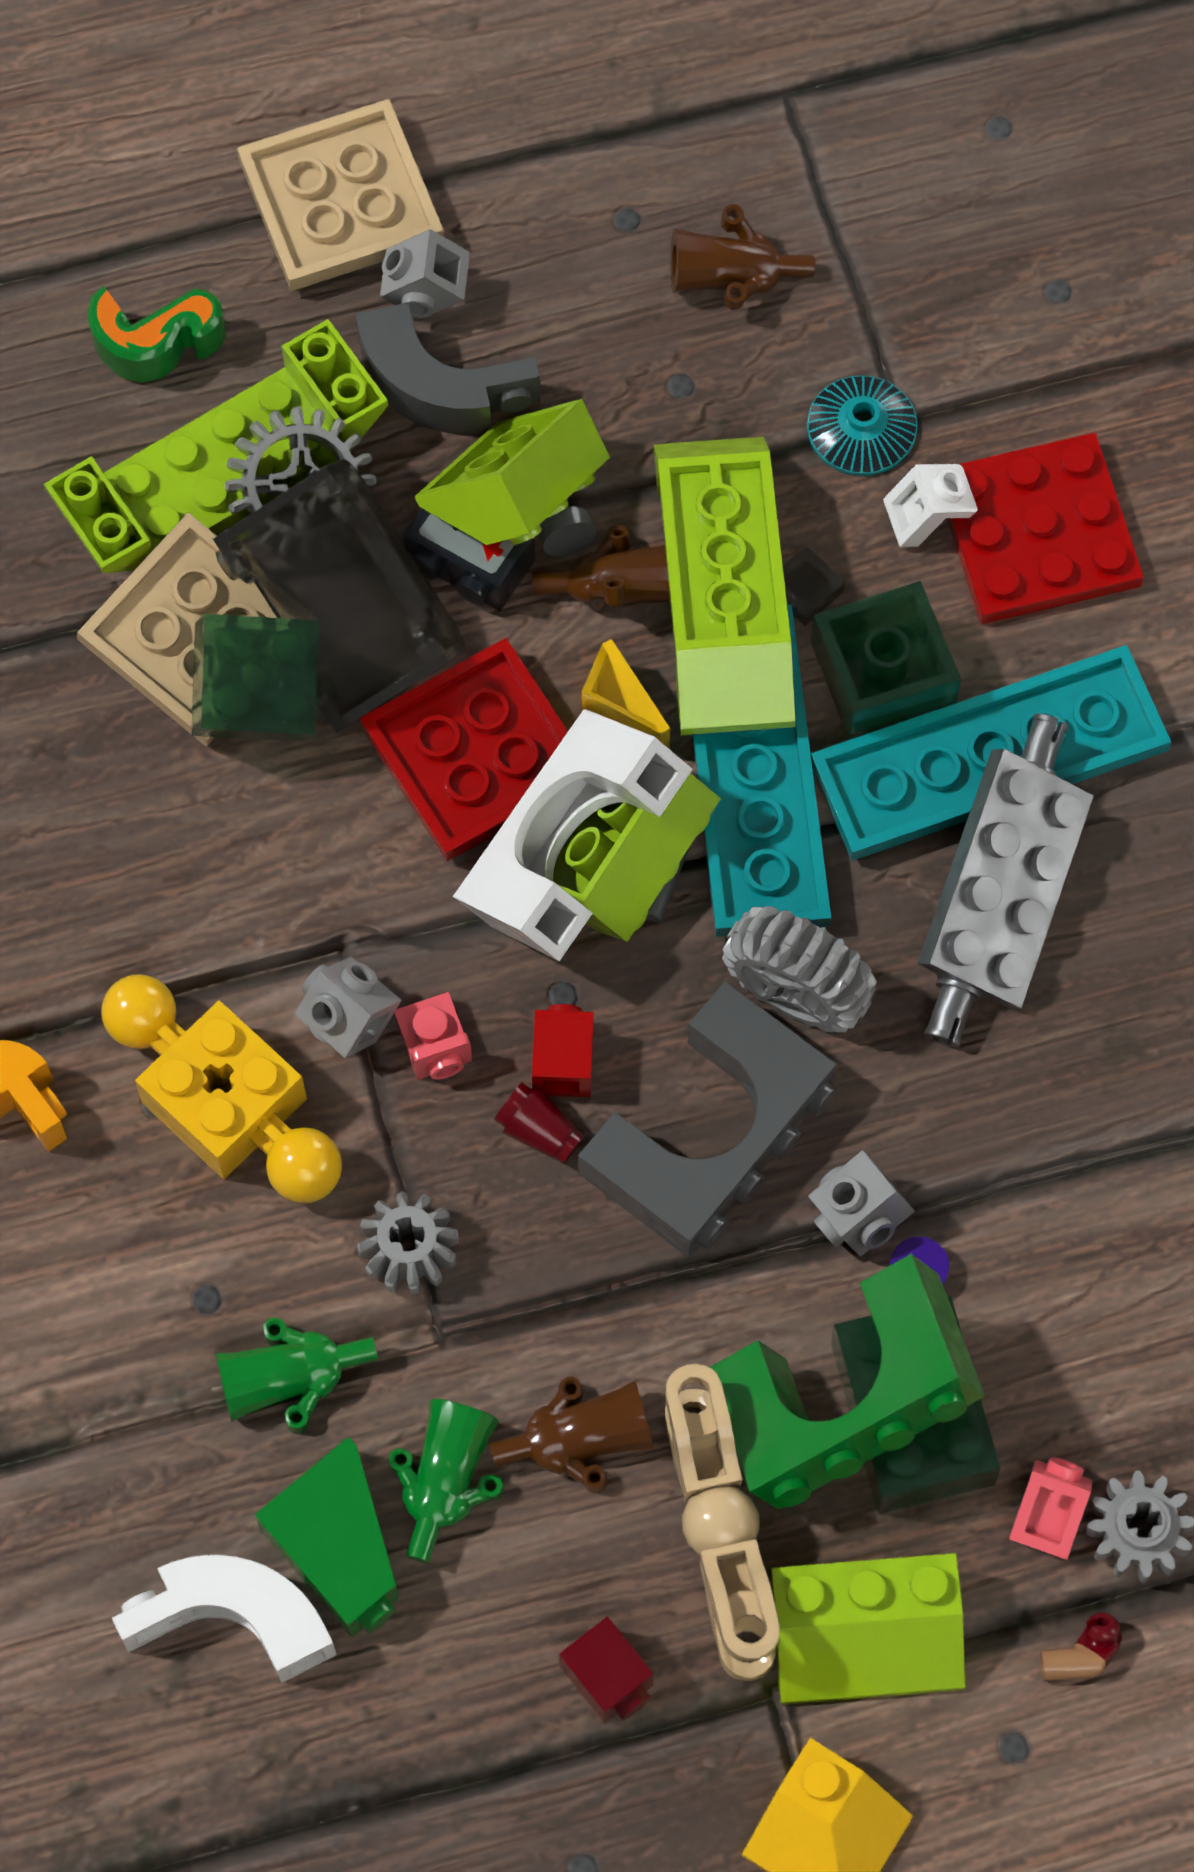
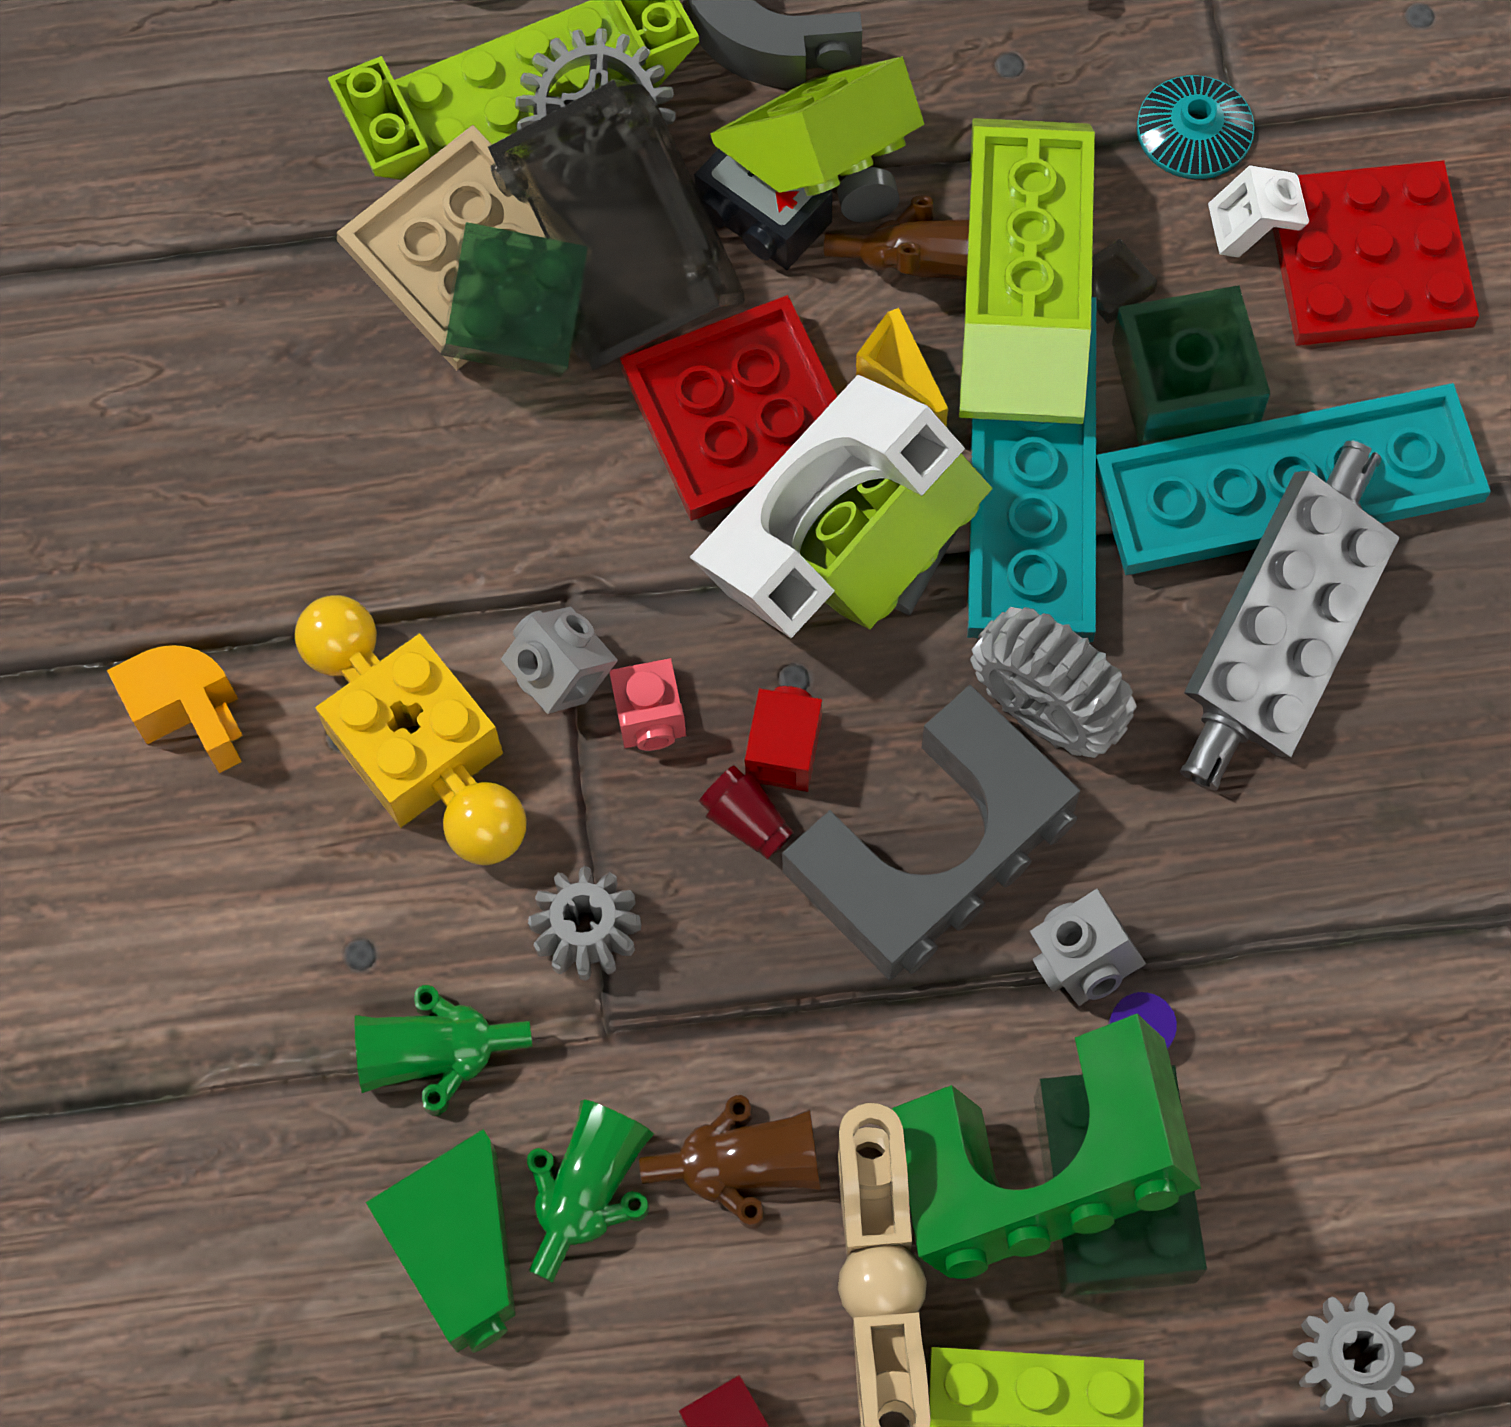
camera: 10 degrees right, 0 degrees up
(235, 1592) = (376, 1317): white arch -> none
(1052, 1507) = (1259, 1319): coral bracket -> none

